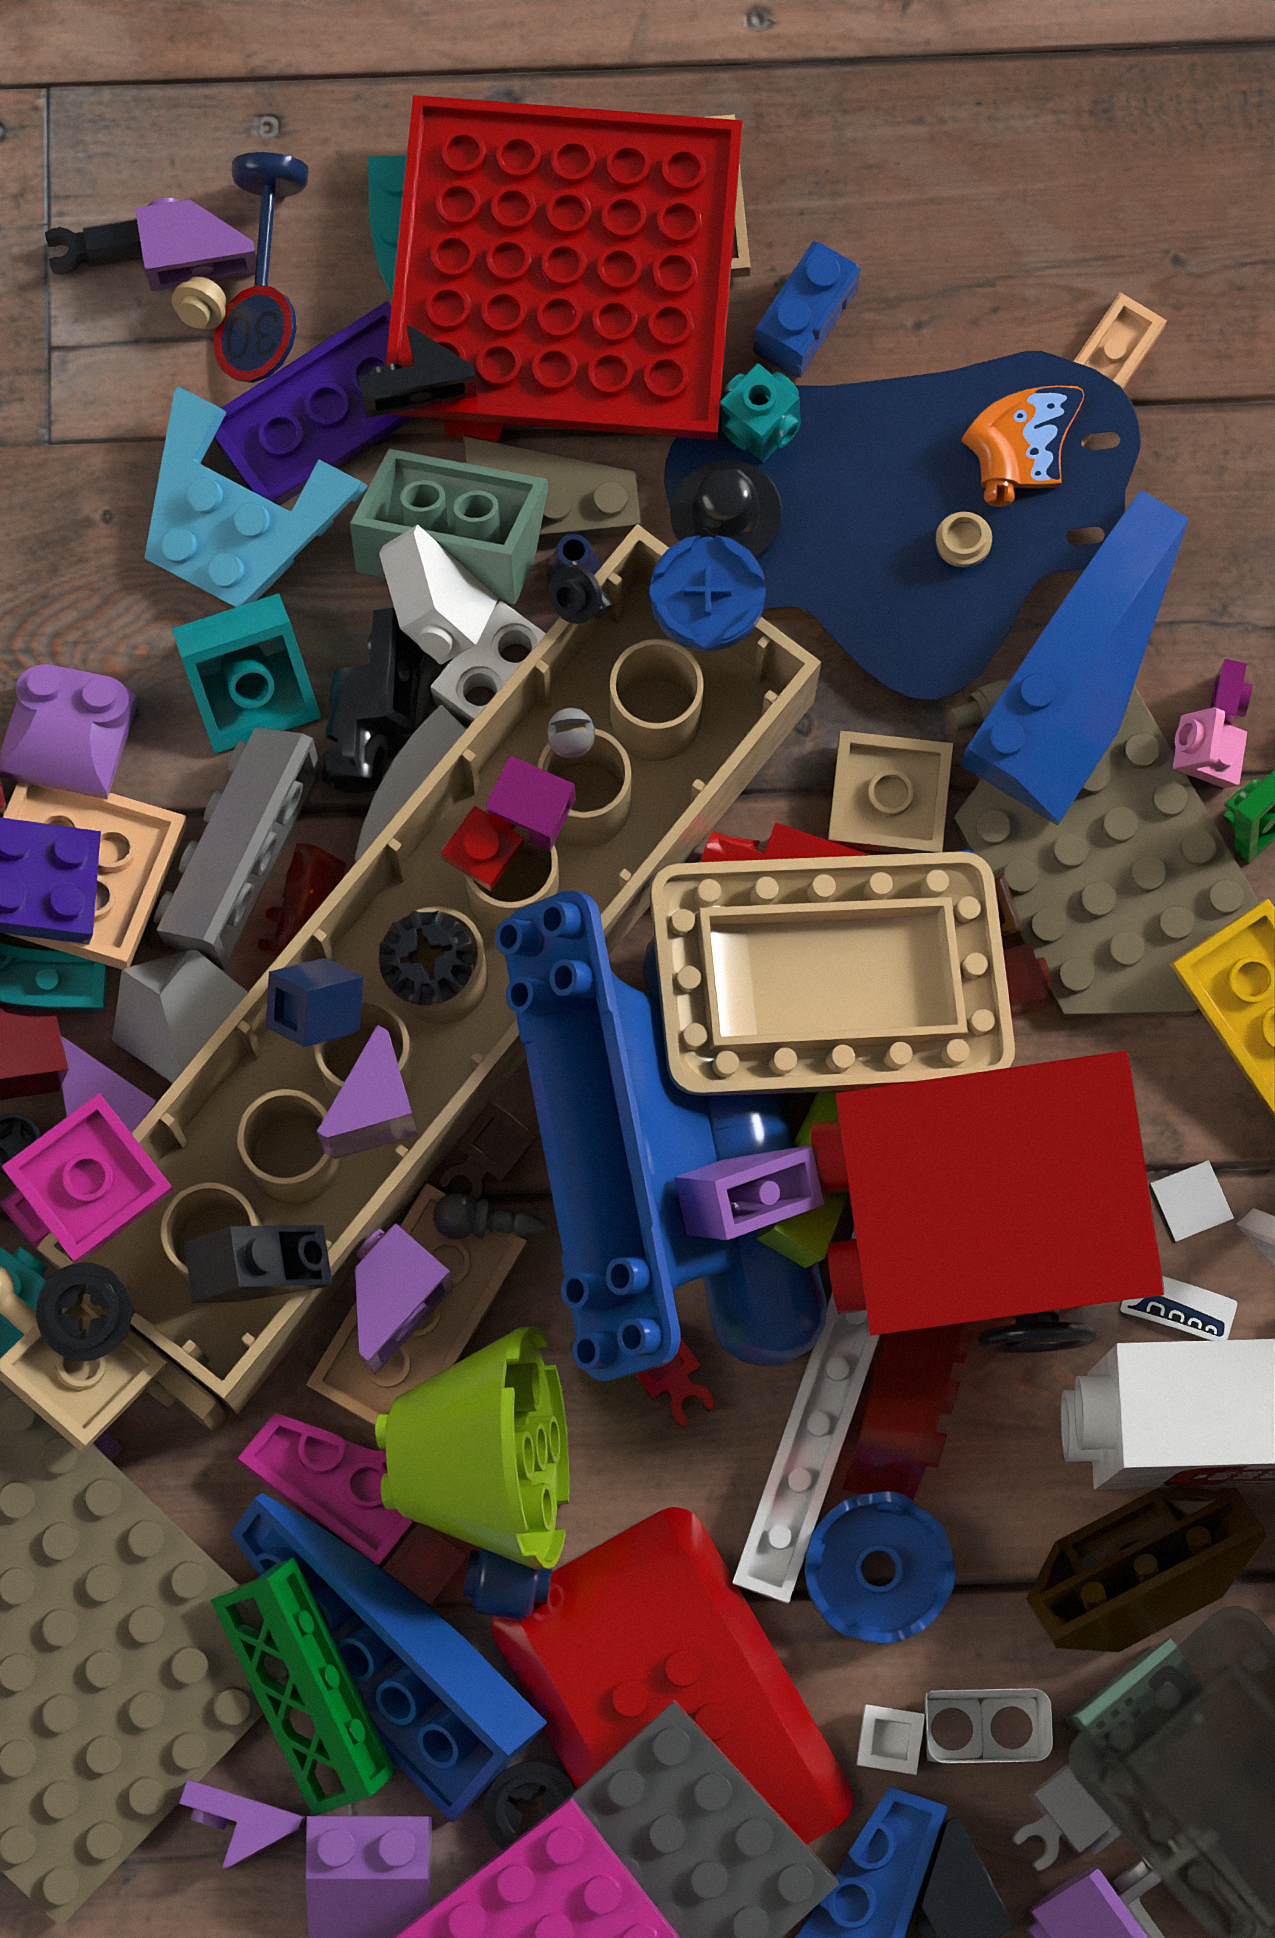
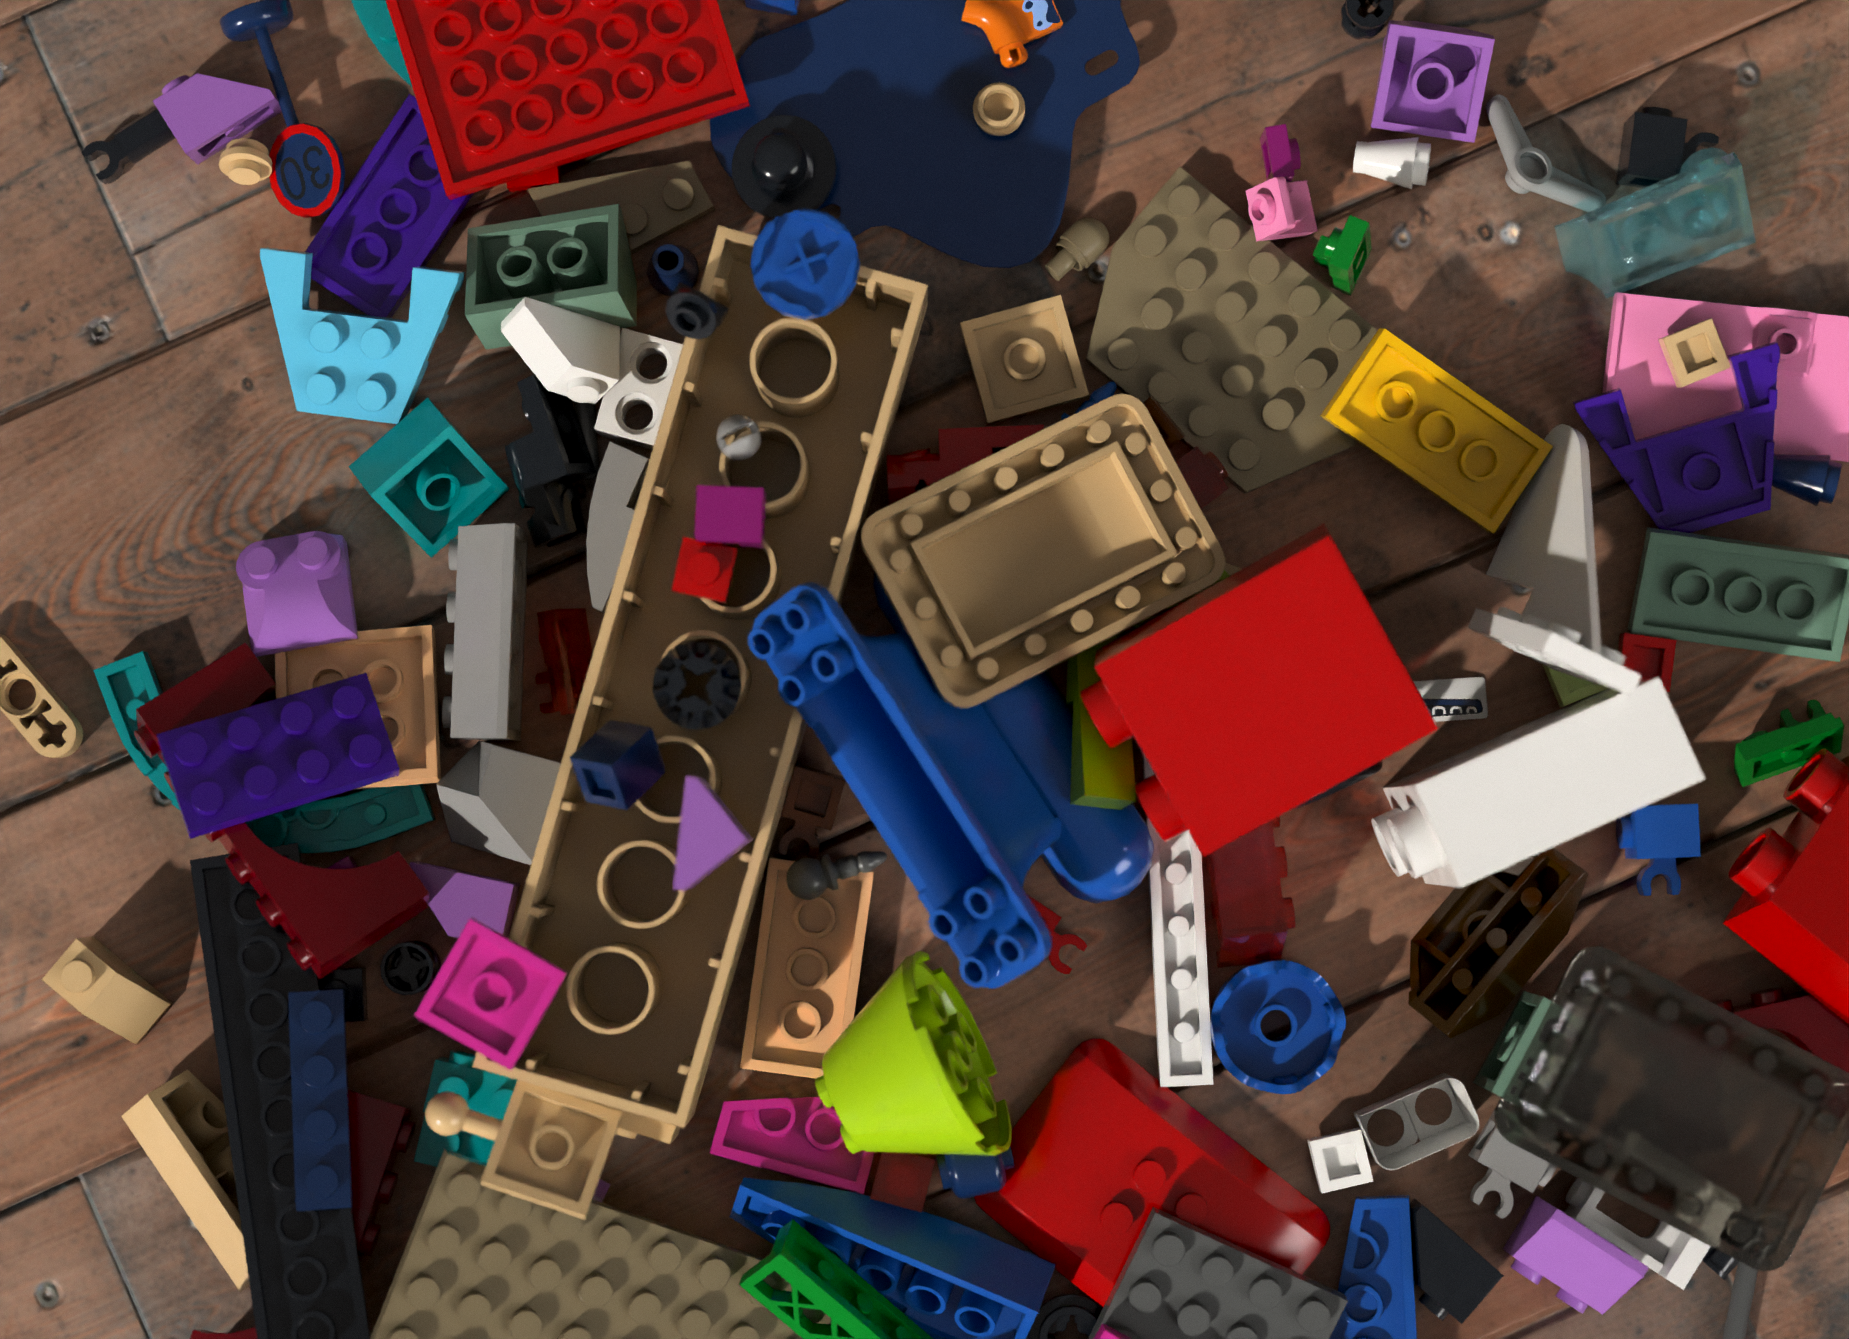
camera: 20 degrees left, 10 degrees up
(65, 1332) = (528, 1128): black gear -> none
(257, 1262) = (665, 1007): black slope -> none
(394, 1292) = (783, 970): medium lavender slope -> none
(433, 379) = (484, 155): black slope -> none
(748, 1192) = (1052, 777): medium lavender slope -> none
(760, 411) = (780, 81): teal brick -> none
(1082, 668) = (1147, 187): blue wedge -> none
(1192, 1201) = (1413, 606): white sticker -> none

